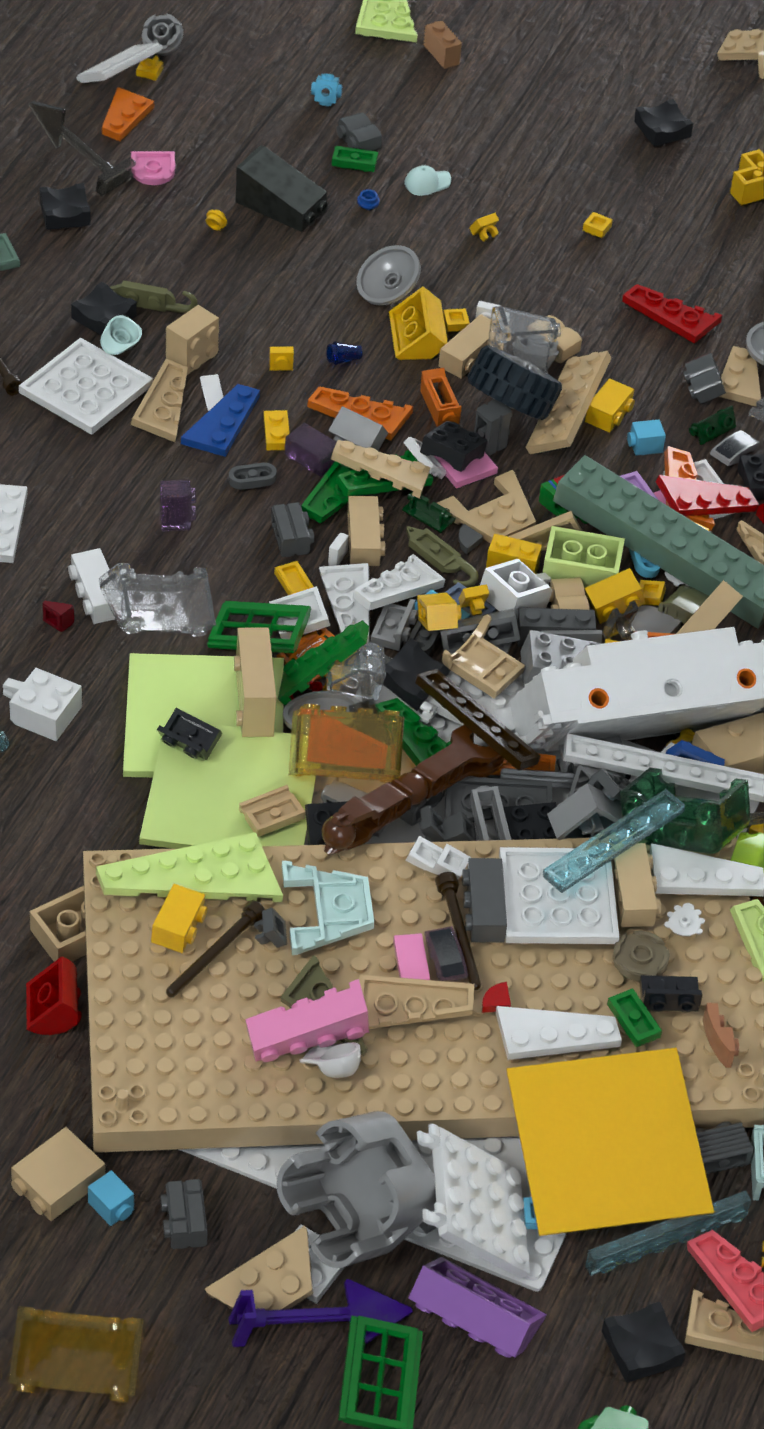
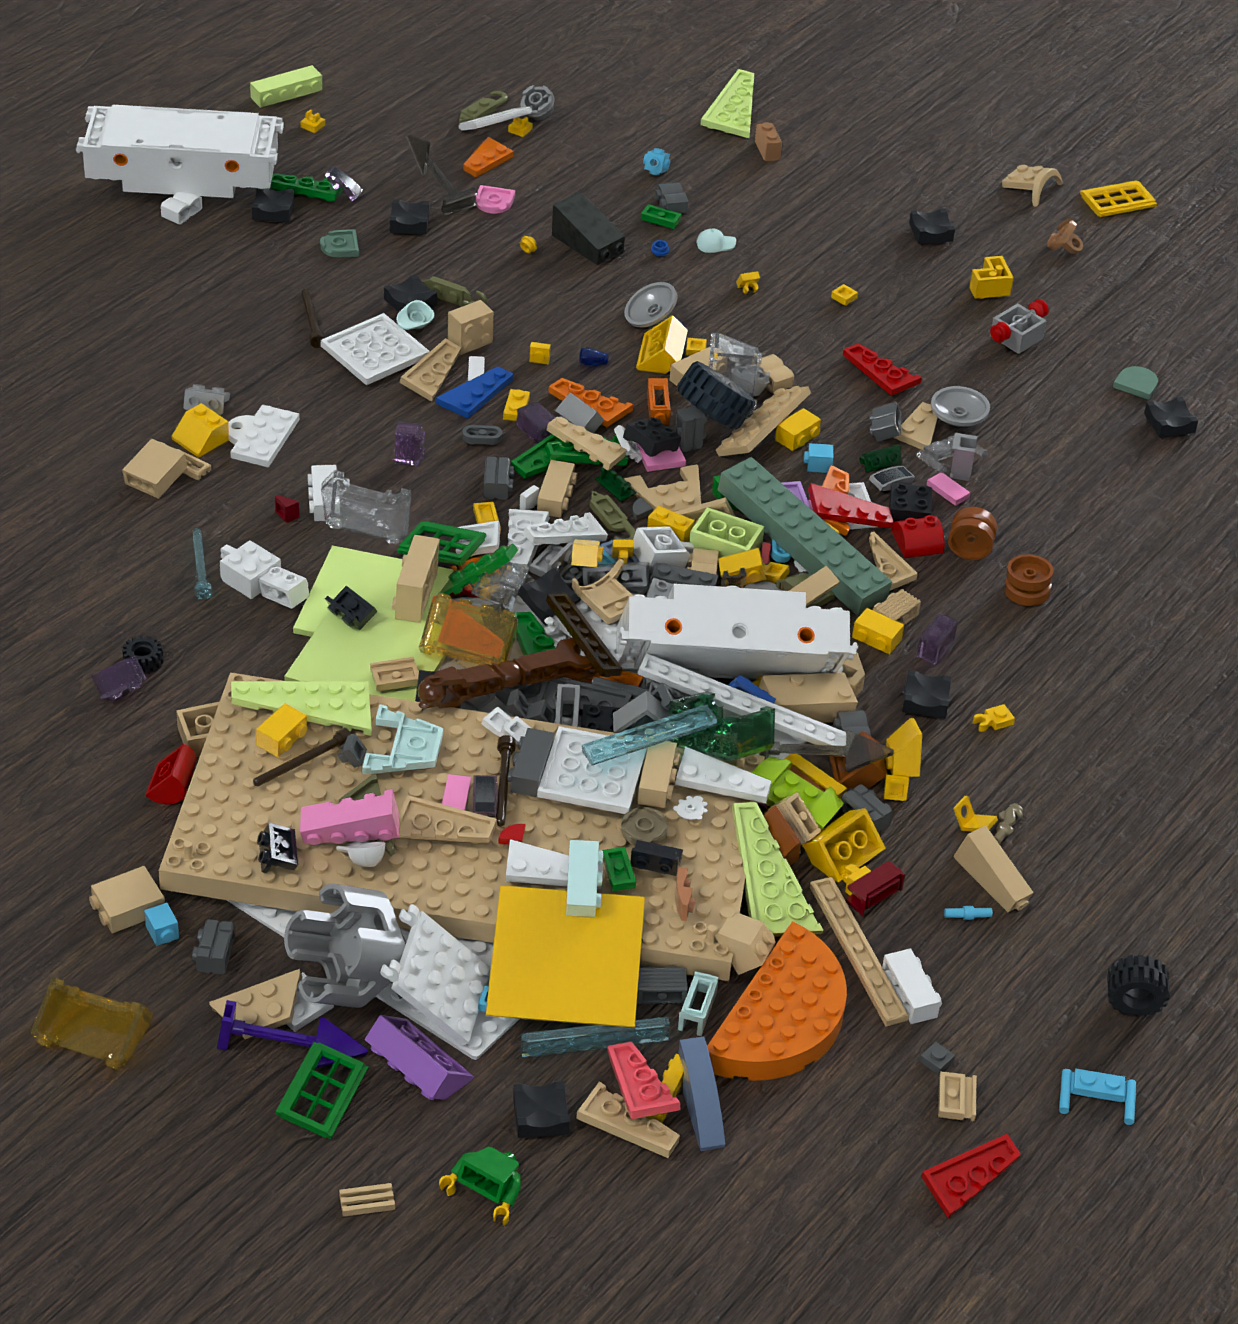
camera: 15 degrees right, 5 degrees down
(95, 720) = (284, 587): none -> white brick
(96, 50) = (482, 107): none -> olive plate
(229, 1075) = (277, 847): none -> black bracket
(604, 1041) = (583, 878): none -> light aqua brick
(630, 562) = (765, 552): none -> red tile

